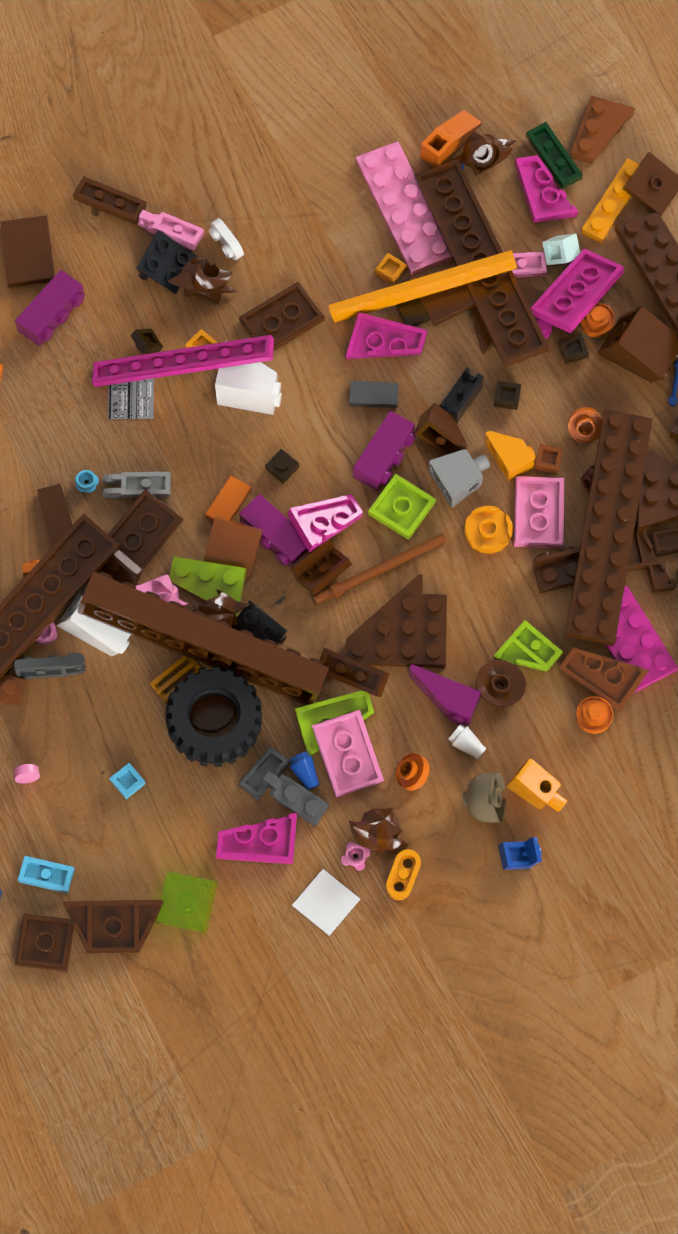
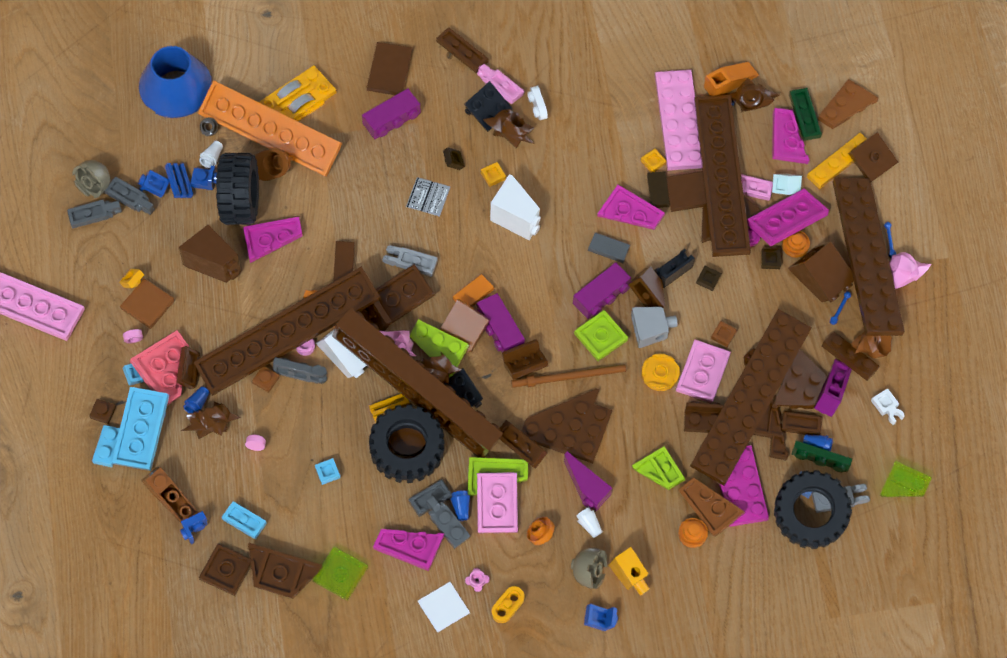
camera: 15 degrees right, 5 degrees down
(85, 475) = (373, 242): medium azure plate -> none
(183, 361) = (474, 179): dark pink tile -> none
(282, 466) = (522, 279): dark brown plate -> none
(283, 316) = (559, 172): reddish brown tile -> none
(324, 519) = (539, 326): wing -> none
(378, 831) = (499, 566): reddish brown hair -> none
(423, 286) = (672, 179): light orange tile -> none
(500, 673) = (630, 479): reddish brown dish -> none
(510, 454) = (696, 322): light orange slope -> none
(584, 425) = (759, 317): orange plate -> none

